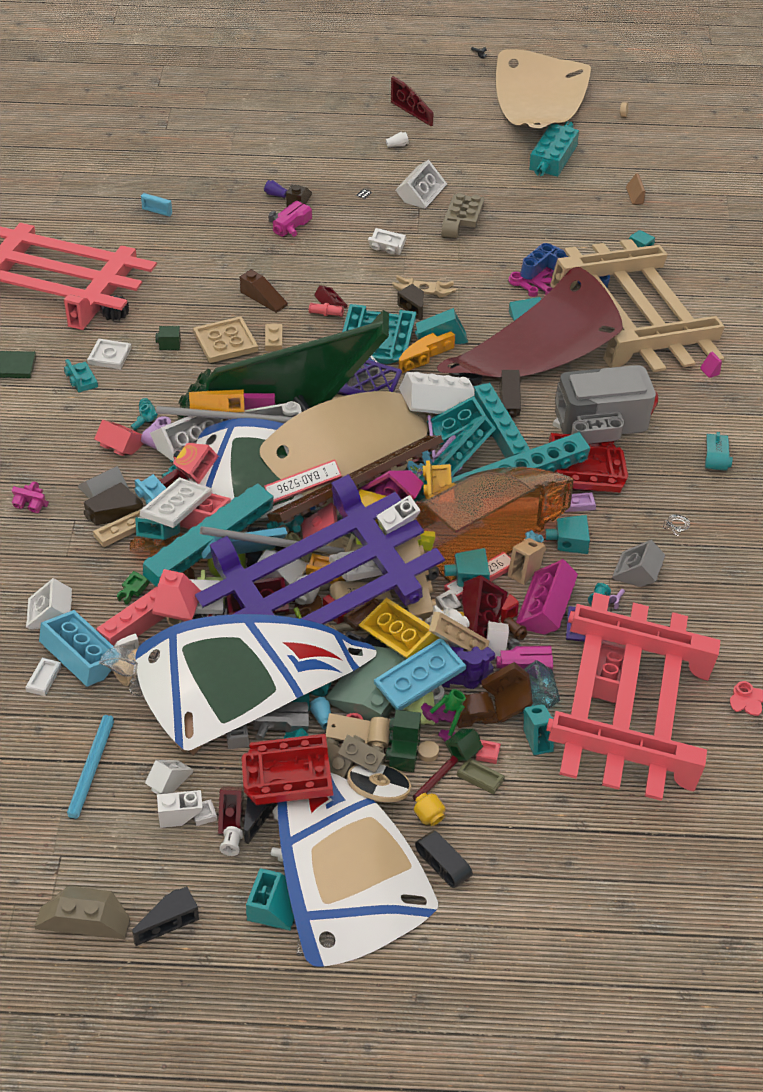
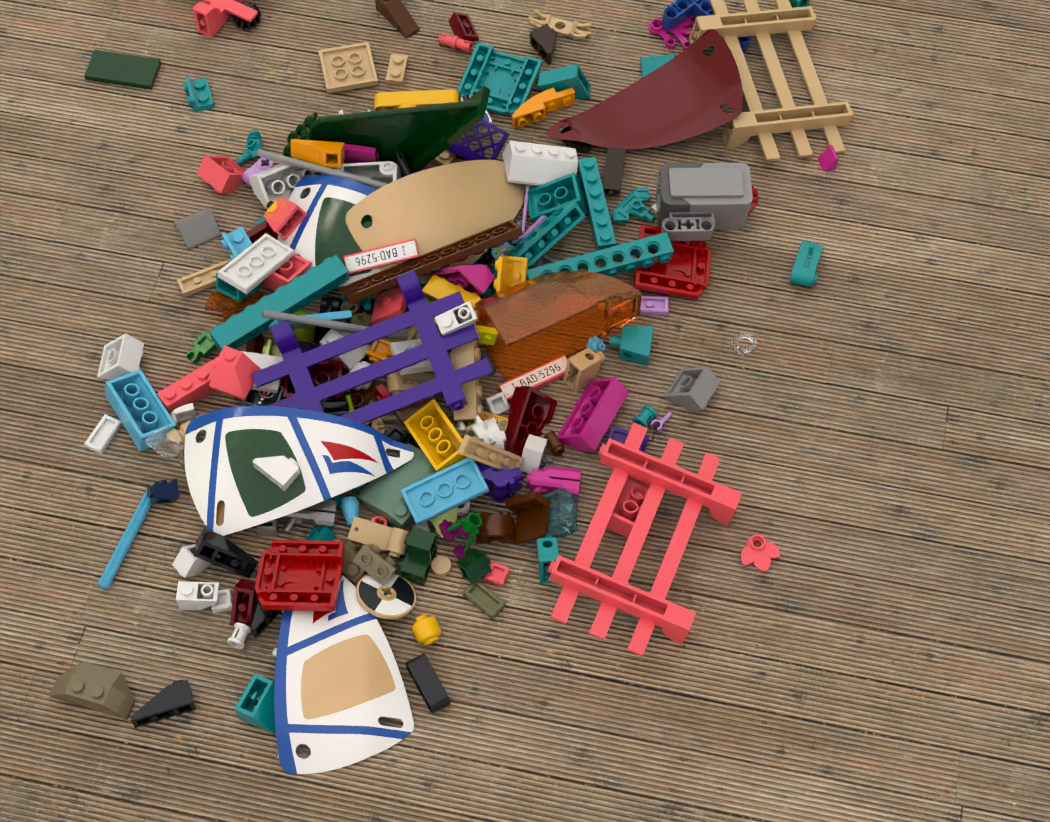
camera: 10 degrees right, 15 degrees up
(30, 494) = (130, 237): dark pink hips -> none
(109, 354) = (232, 70): white tile -> none
(111, 505) = (199, 252): dark brown slope -> none
(122, 718) = (163, 492): none -> dark blue brick
(168, 338) = (292, 59): dark green brick -> none
(200, 764) = (223, 553): none -> black slope
(245, 670) = (278, 470): none -> white slope
(444, 769) = (441, 595): dark red bar -> none
(468, 566) = (524, 371): teal torso -> none
(510, 608) = (553, 421): red slope -> none
(537, 421) = (633, 205): none -> teal piece

